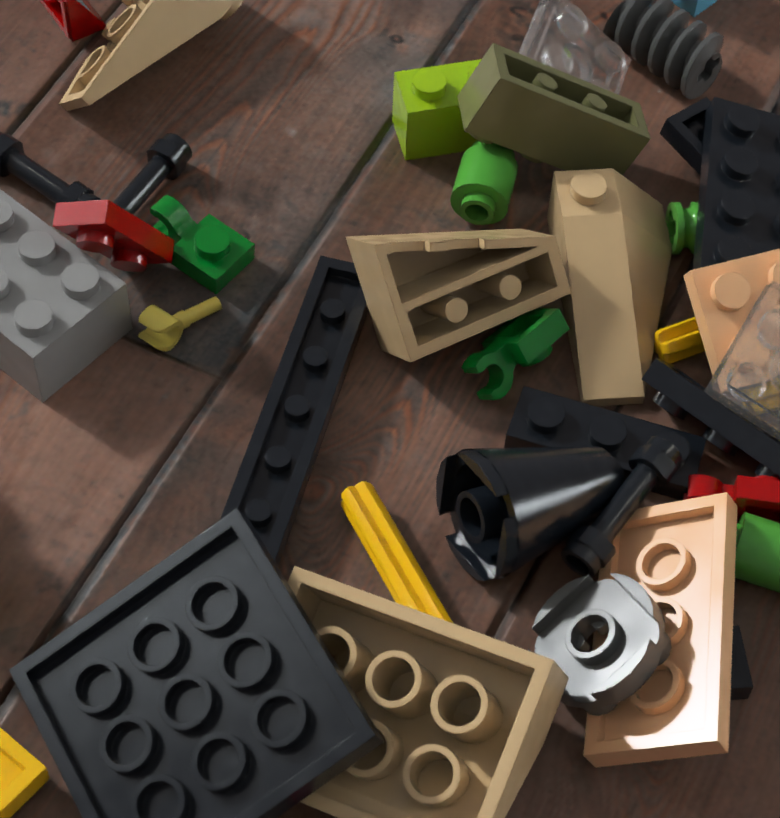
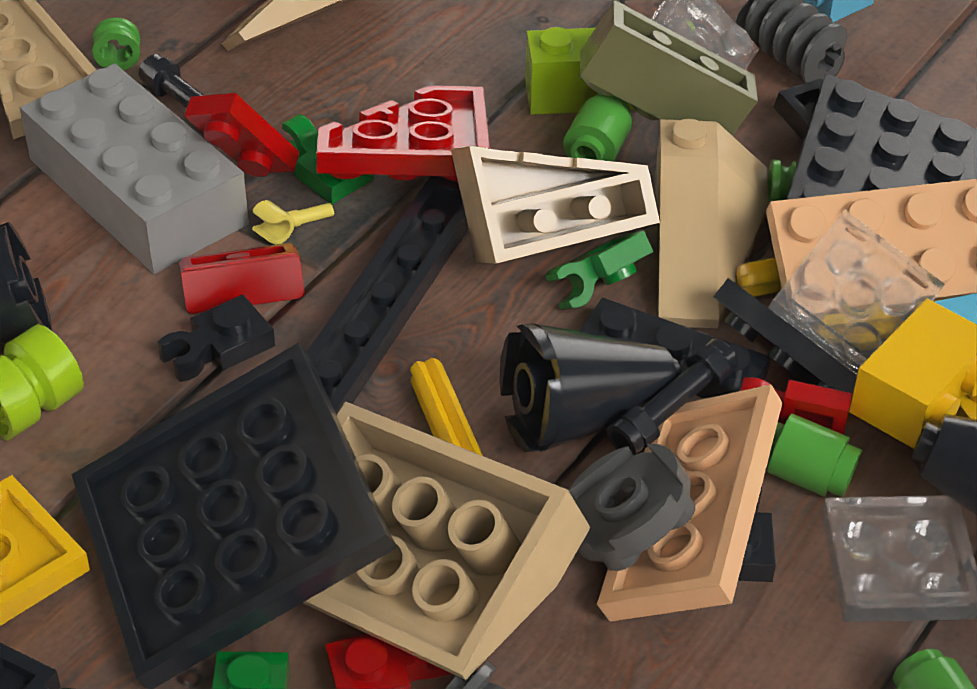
camera: 10 degrees right, 10 degrees down
(132, 472) = (221, 334): none -> black plate
(138, 398) = (258, 273): none -> red slope
(165, 160) = (307, 92): black bar -> none
(292, 212) = (406, 138): none -> red plate

